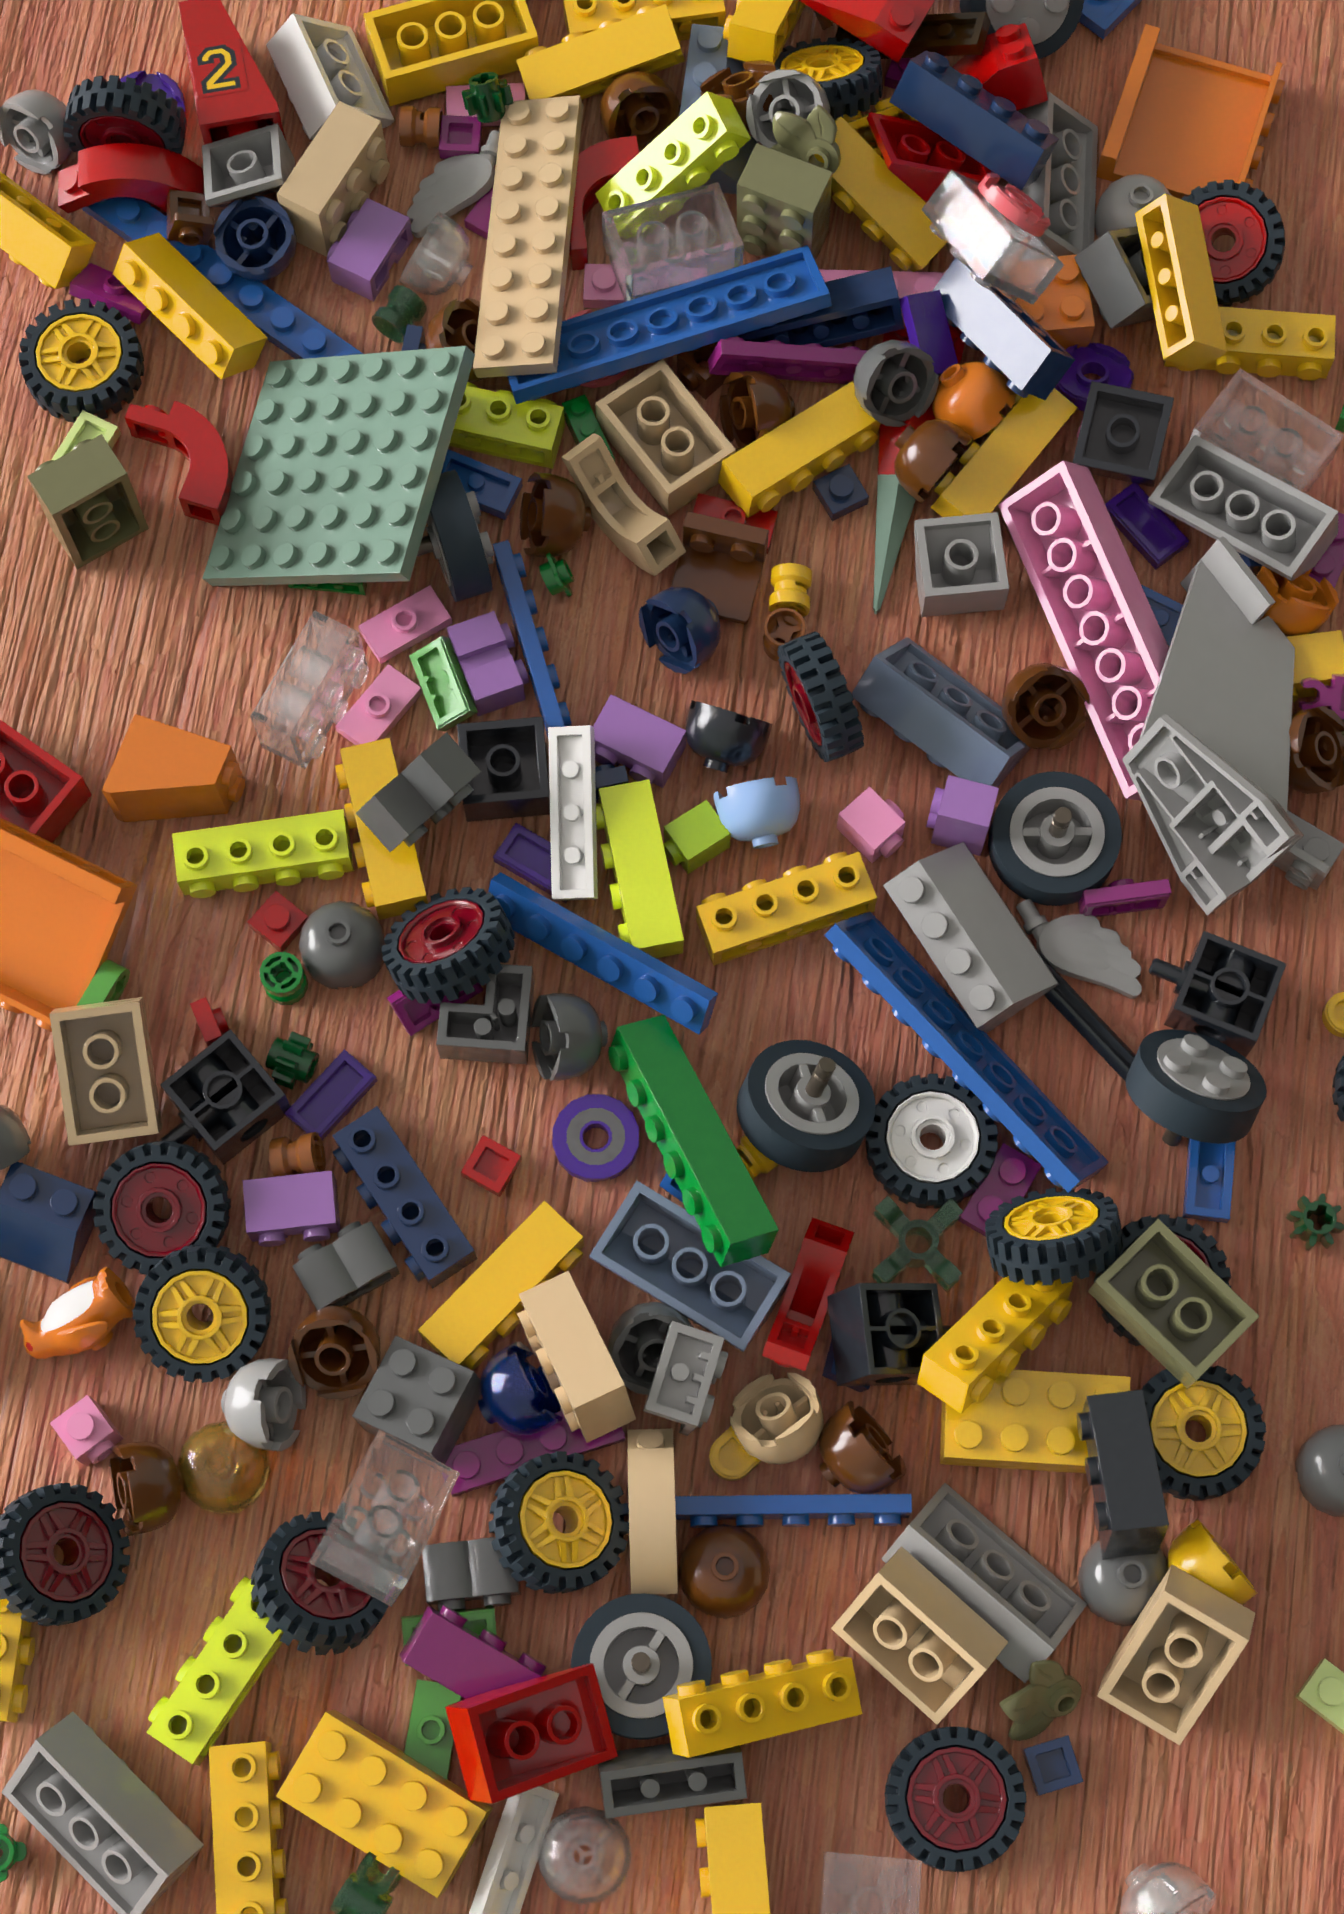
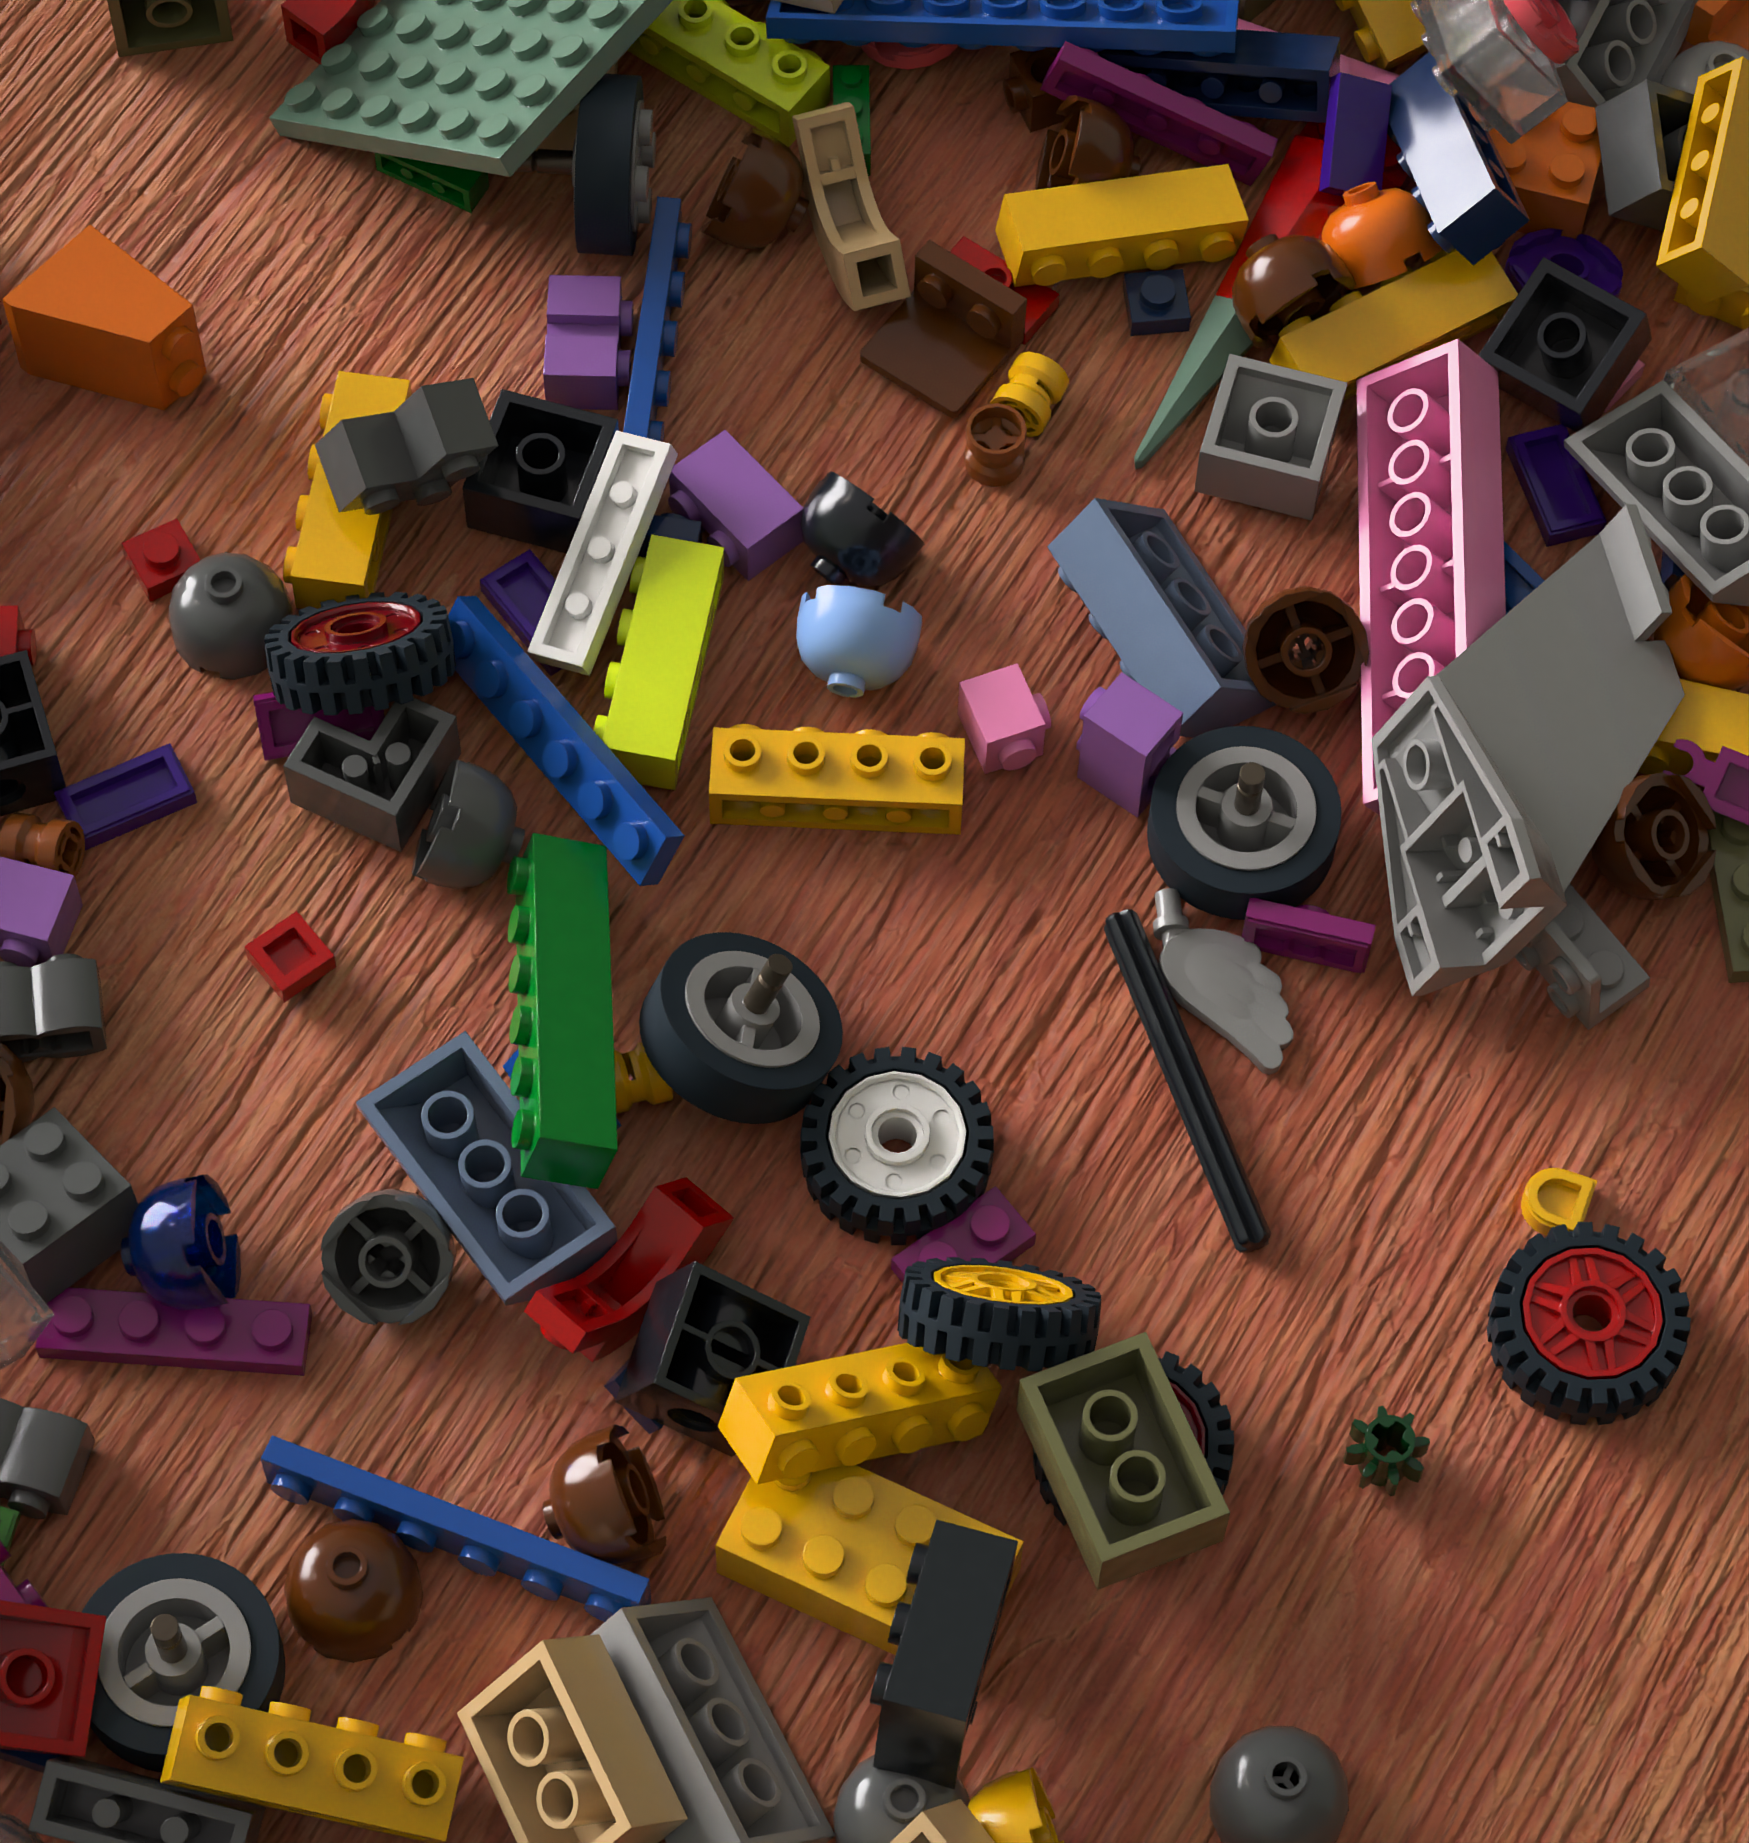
camera: 20 degrees right, 10 degrees down
(262, 853) = (181, 466): neon yellow brick -> none
(284, 987) = (133, 626): green wheel -> none
(292, 1060) = (93, 728): dark green gear -> none
(310, 690) = (335, 287): clear brick -> none
(379, 707) = (423, 347): bright pink plate -> none
(404, 1197) = (155, 953): dark blue brick -> none
(405, 624) = (502, 262): bright pink plate -> none
(443, 683) = (515, 344): bright green plate -> none
(490, 1297) = (232, 1109): yellow brick -> none
(493, 487) = (686, 131): blue plate -> none
(527, 1531) = (120, 1465): wheel -> none
(556, 575) = (727, 270): green plate -> none
(574, 1358) = (275, 1223): tan brick -> none
(589, 1113) = (441, 943): dark purple tile -> none
(652, 1511) = (279, 1465): tan arch -> none
(664, 436) = (945, 146): tan brick -> none
(682, 627) = (860, 381): dark blue cylinder -> none
(683, 1376) = (411, 1304): light grey bracket -> none
(695, 837) = (757, 650): lime brick -> none
(729, 1457) = (438, 1449): yellow tile -> none
(778, 1418) = (514, 1415): tan cylinder -> none
(820, 696) = (999, 523): black wheel -> none
(895, 382) = (1281, 177): dark grey cylinder -> none
(939, 1267) = (860, 1253): clear green pin -> none
(969, 1052) = (997, 1046): blue plate -> none
(971, 936) = (1069, 902): light grey slope -> none
(1195, 1087) = (1287, 1200): black wheel -> none
(1209, 1181) = (1264, 1335): blue plate -> none
(1222, 991) = (1387, 1102): black piece -> none
(1231, 1429) = (1083, 1712): wheel -> none

